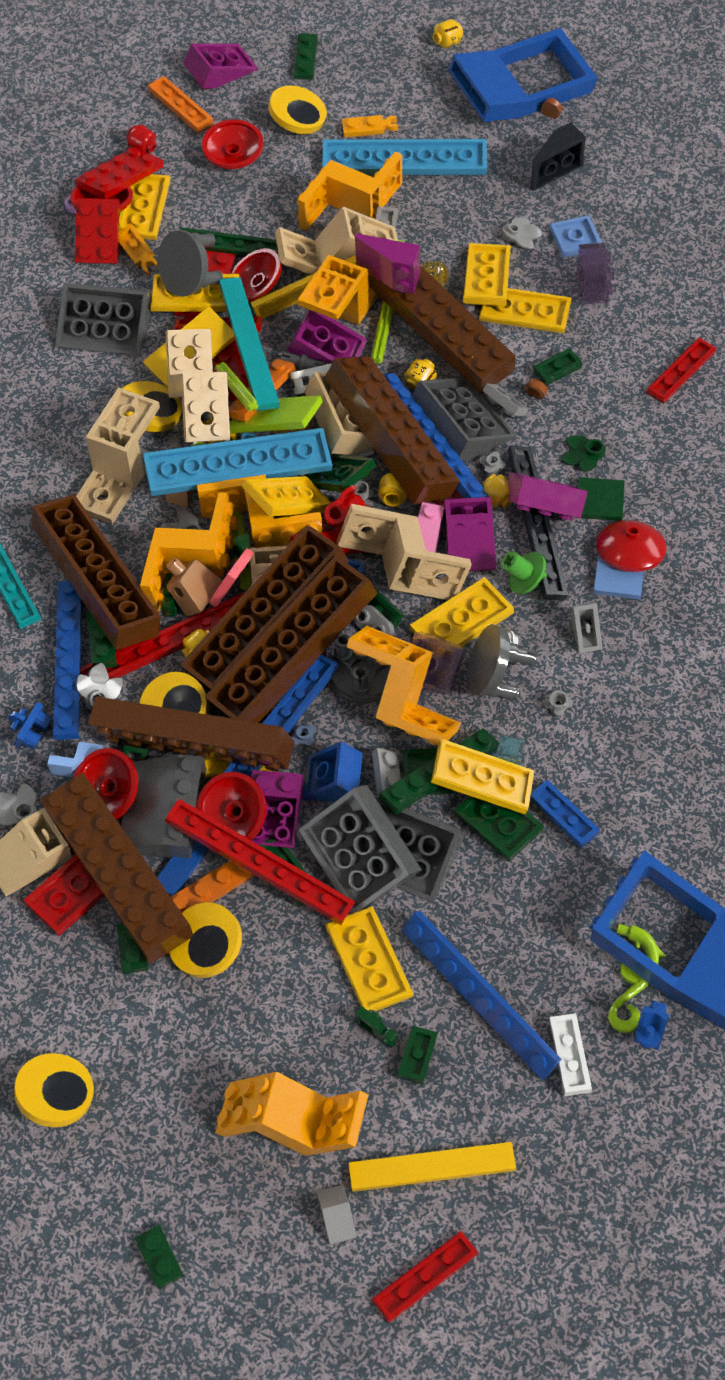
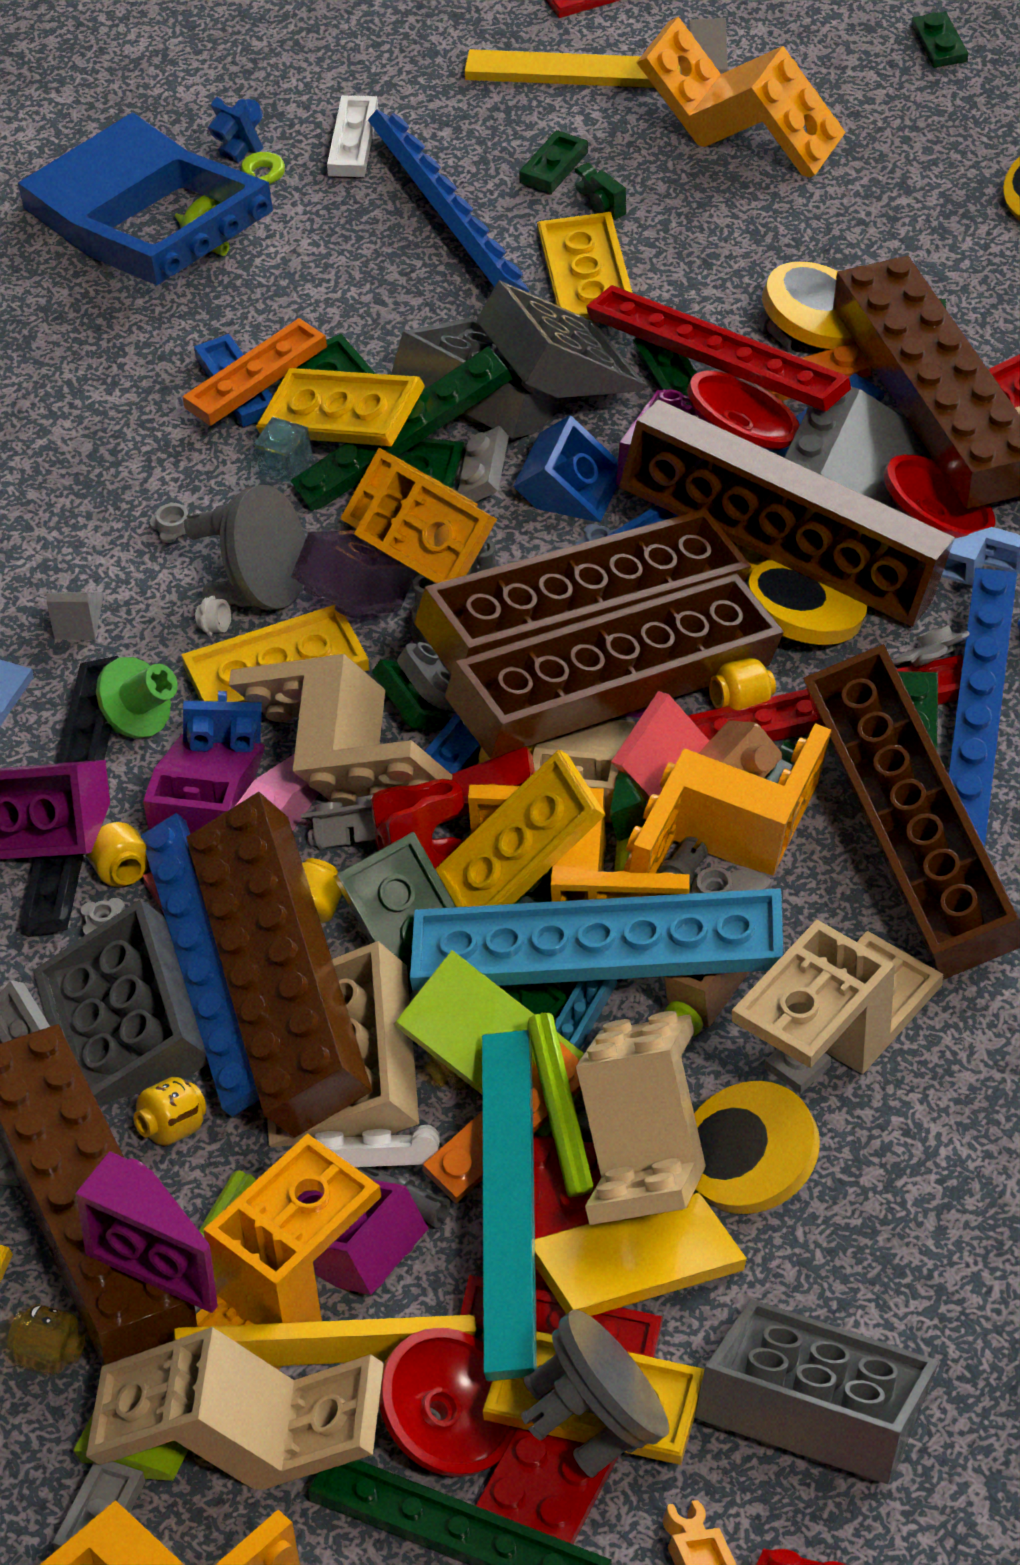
camera: 165 degrees left, 10 degrees down
(479, 558) = (222, 723): none -> blue hips
(547, 802) = (254, 371): none -> orange plate

